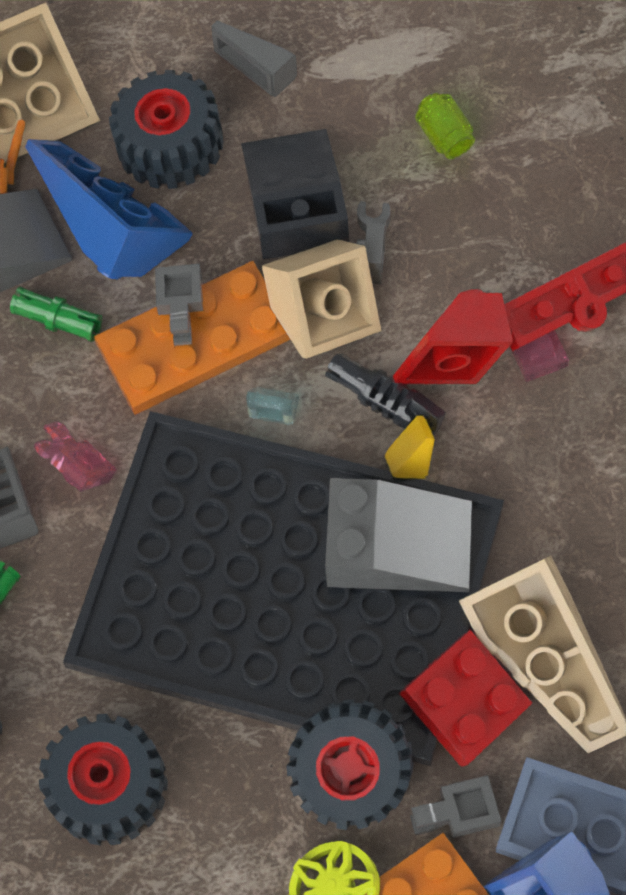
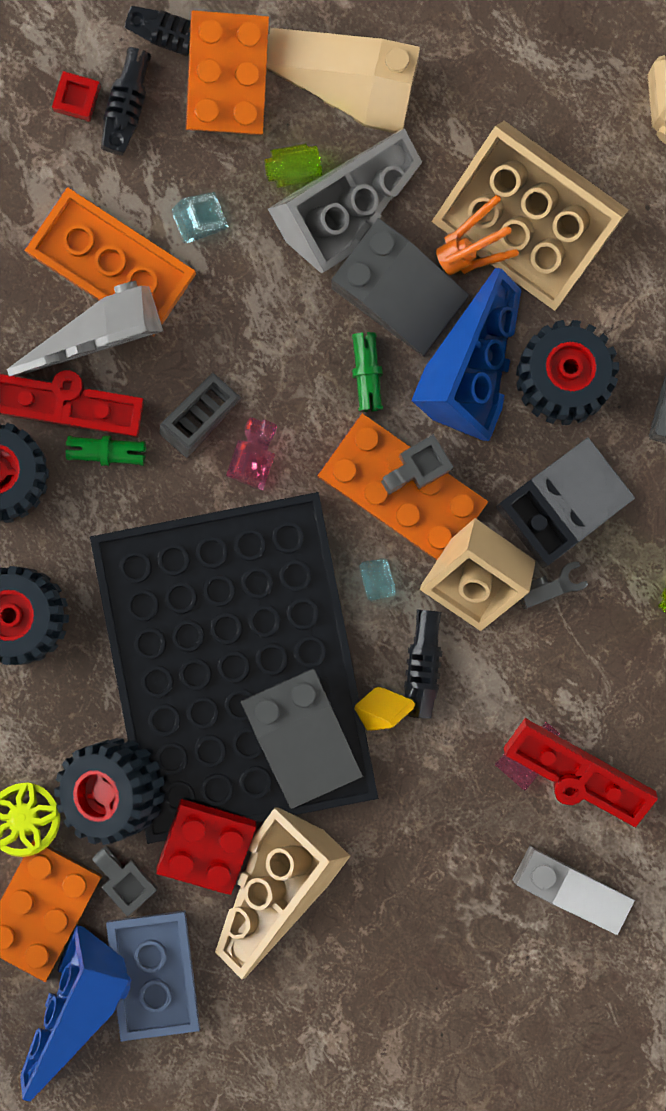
camera: 60 degrees right, 20 degrees up
(460, 343) = (488, 702): red slope -> none

